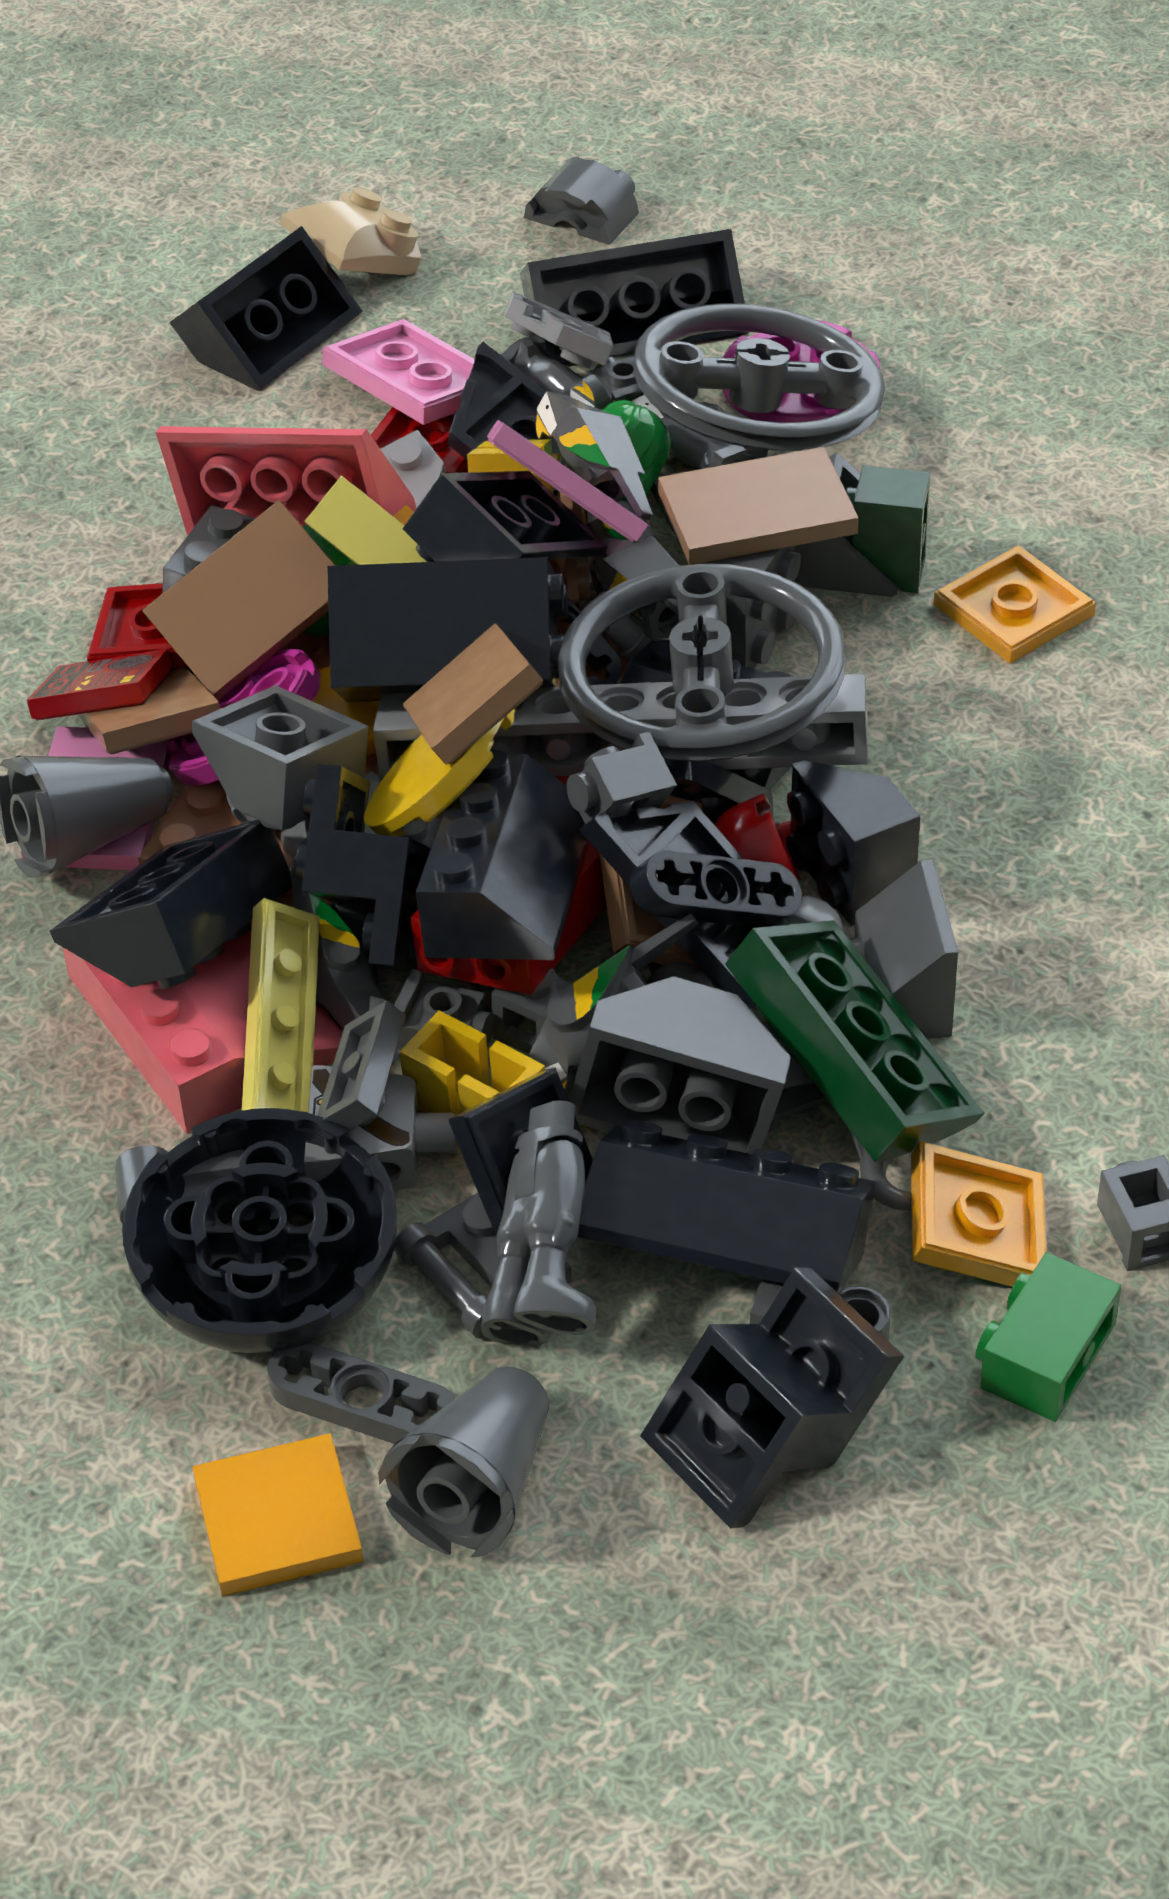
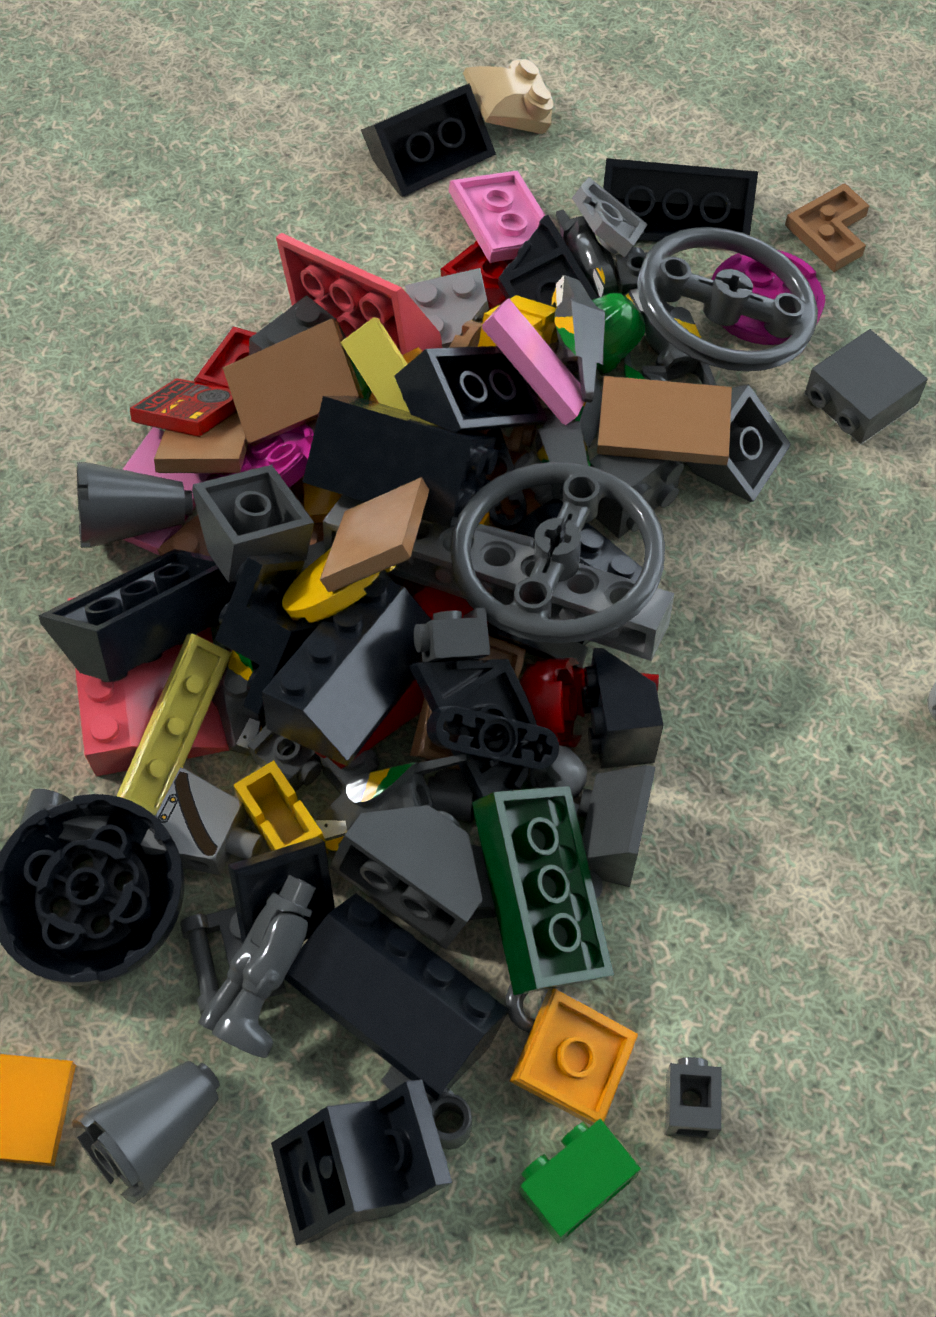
camera: 20 degrees right, 15 degrees up
(344, 1374) = (95, 1003): dark grey beam -> none
(362, 1067) = (191, 804): dark grey plate -> none
(588, 197) = (681, 109): dark grey cylinder -> none
(839, 279) = (824, 226): none -> medium nougat plate
(893, 522) = (764, 452): dark green slope -> none
(976, 431) = (865, 386): none -> dark grey piece
(1014, 603) = (832, 538): light orange tile -> none

